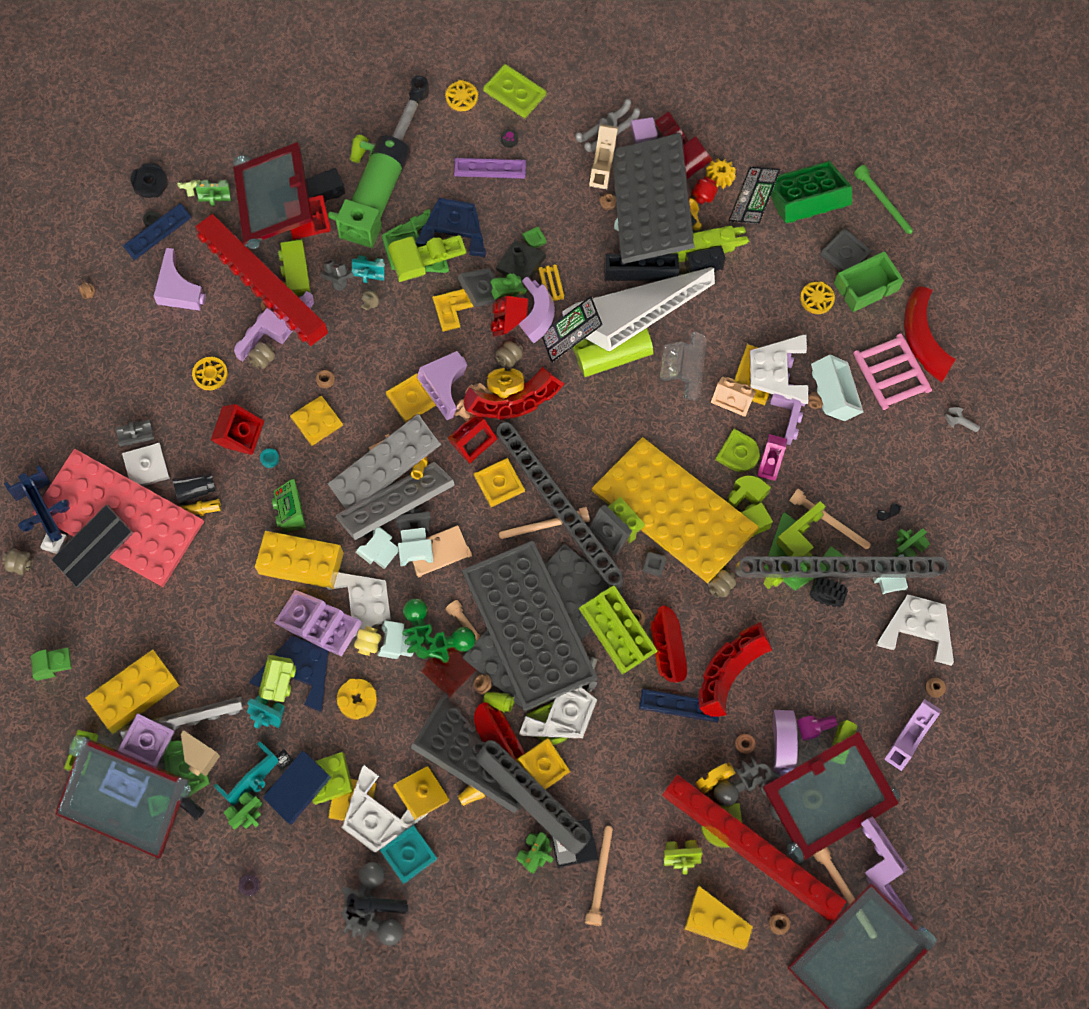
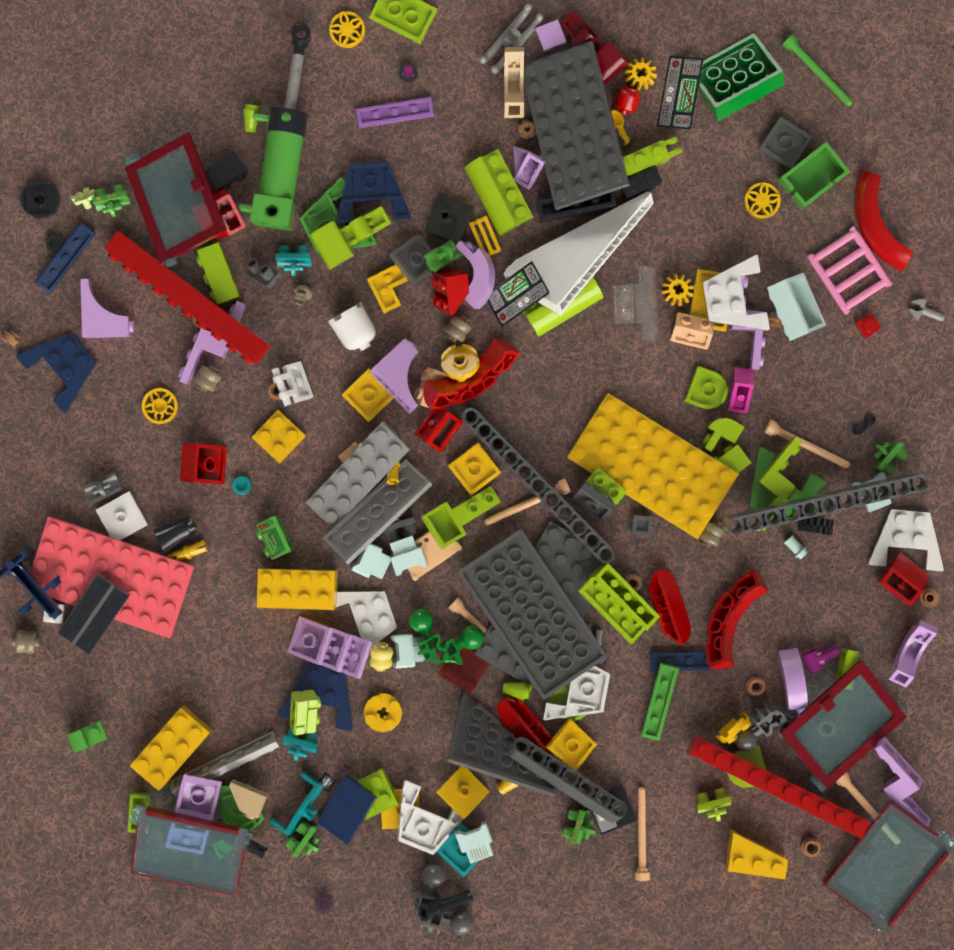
camera: 10 degrees left, 20 degrees up
(134, 318) = (68, 360): none -> dark blue wing
(345, 372) = (297, 383): none -> white plate
(410, 333) = (354, 328): none -> white cylinder
(423, 845) = (476, 842): none -> light aqua piece
(462, 524) = (447, 523): none -> lime plate
(483, 683) = (499, 676): medium nougat plate -> none
(534, 238) = (457, 187): bright green tile -> none
(571, 246) = (498, 192): none -> lime brick
(603, 230) = (527, 167): none -> lavender slope
(643, 739) = (659, 701): none -> bright green tile
(718, 354) = (683, 287): none -> yellow gear
(806, 613) = (797, 548): none -> light aqua pin
(904, 422) = (868, 325): none -> red plate
(910, 663) = (903, 579): none -> red slope

